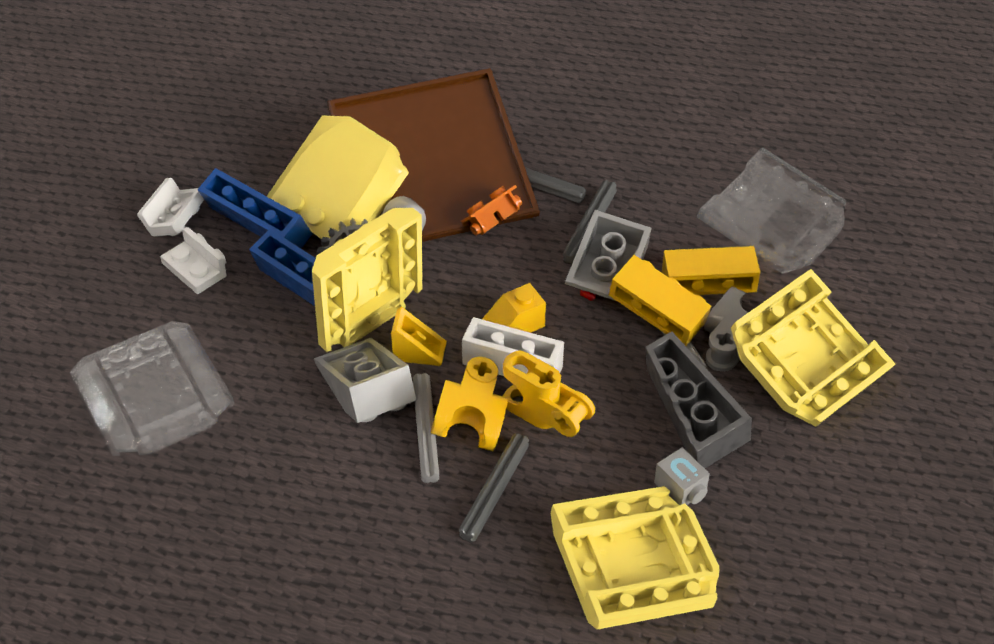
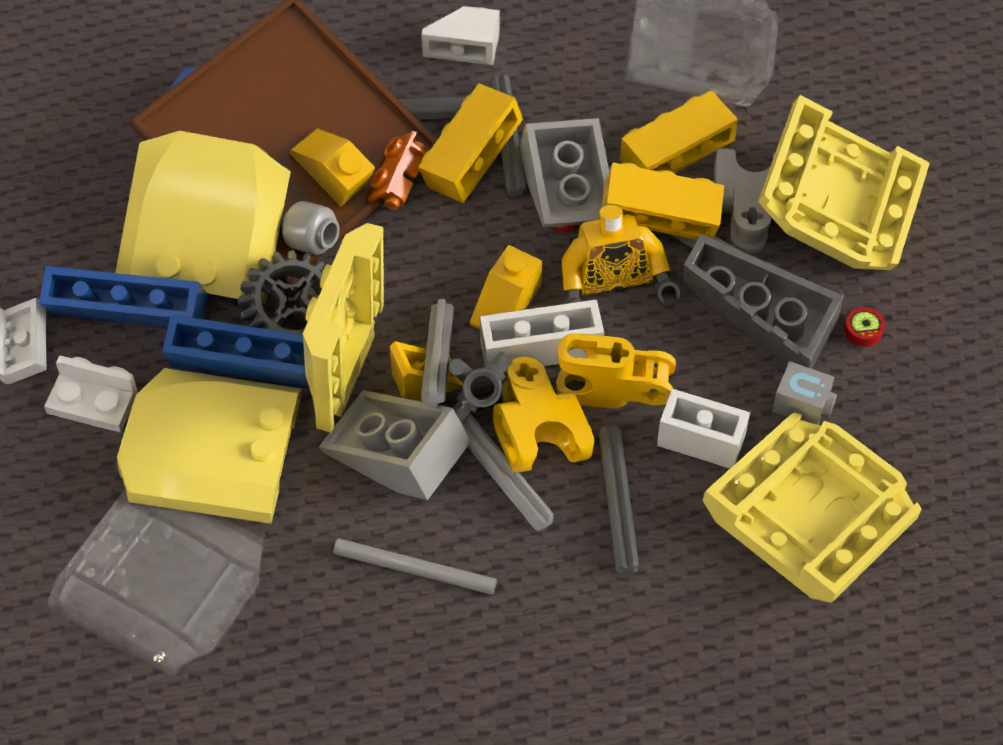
camera: 30 degrees left, 10 degrees up
(238, 321) = (208, 444): none -> light yellow wedge
(321, 464) = (415, 566): none -> light grey bar
(430, 331) = (437, 353): none -> light grey axle
(439, 361) = (492, 370): none -> dark grey pin
(448, 187) = (334, 164): none -> yellow slope
(554, 212) = (470, 142): none -> yellow brick
(584, 463) = (702, 428): none -> white brick
(603, 147) = (463, 36): none -> white slope
(603, 323) = (614, 256): none -> yellow torso
(766, 455) = (864, 326): none -> tile

